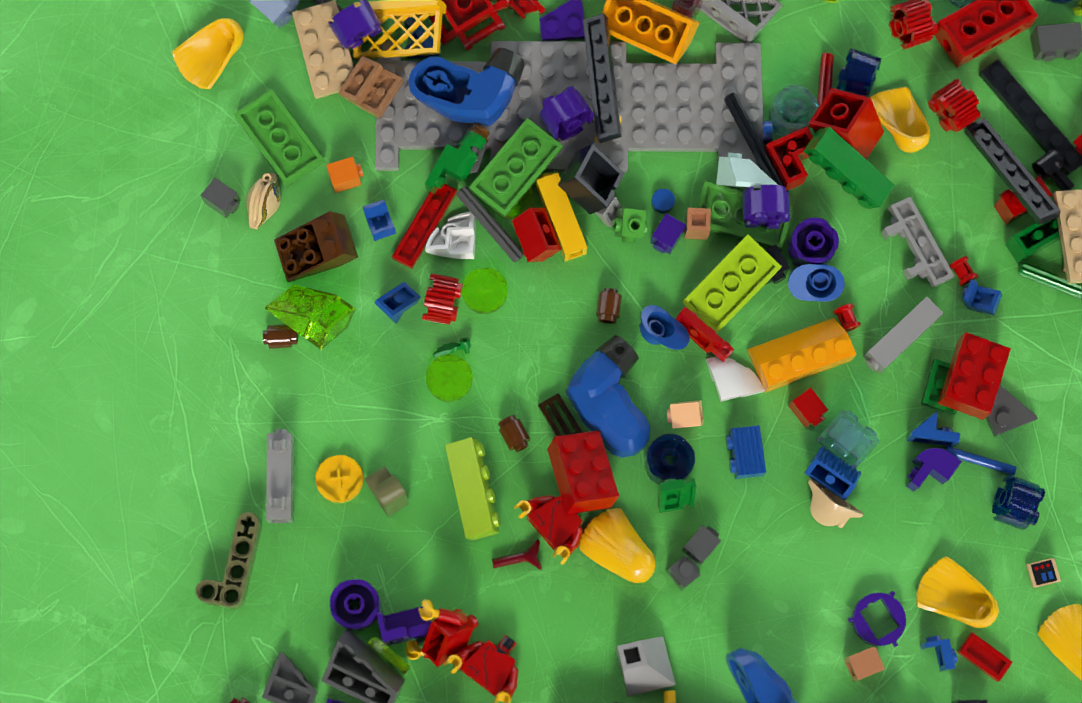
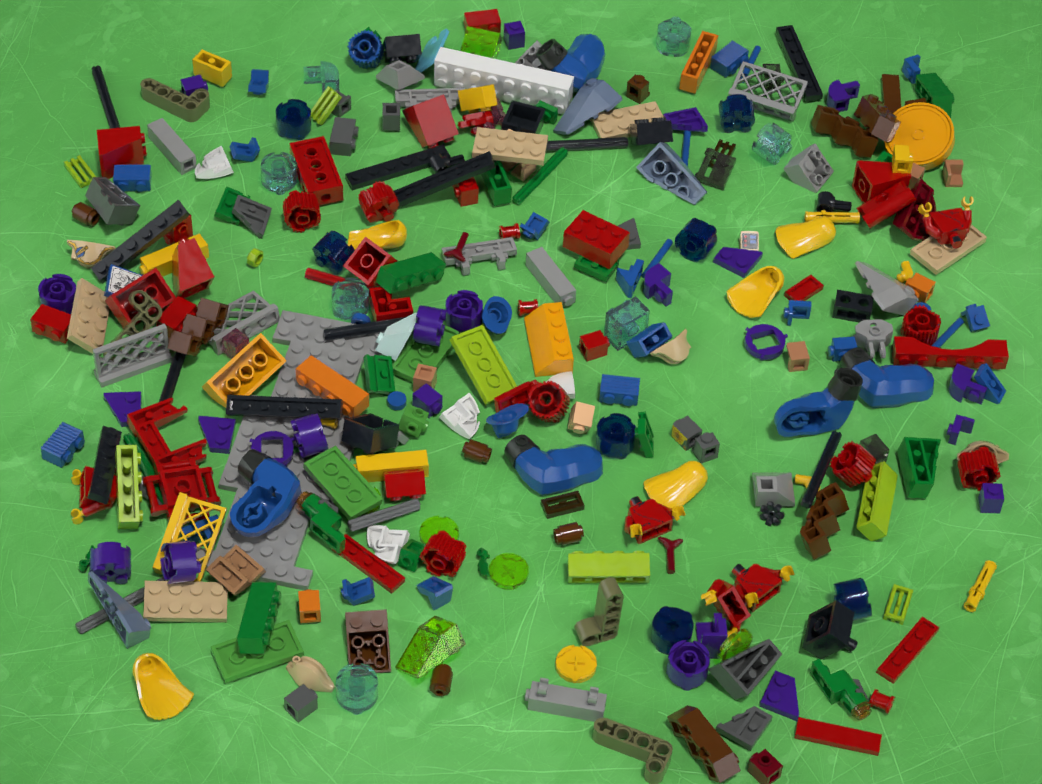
camera: 75 degrees left, 25 degrees down
(243, 237) = (356, 688): none -> clear light blue brick
(251, 641) = (704, 743): none -> reddish brown brick
(311, 125) = (258, 618): none -> green brick
(390, 568) = (670, 627): none -> clear blue brick
(445, 265) = (410, 554): none -> green bracket
(538, 66) = (288, 448): none -> dark purple piece
(582, 472) = (613, 488): red brick -> none
(604, 670) = (771, 513): none -> black plant
(649, 122) = (331, 385): none -> orange brick
(658, 280) = (462, 416): none -> white brick
(688, 170) = (379, 374): none -> green plate
(696, 370) = (556, 408): none -> red brick
(905, 215) = (457, 252): none -> dark red piece
(1010, 563) = (737, 260): none -> dark purple wing

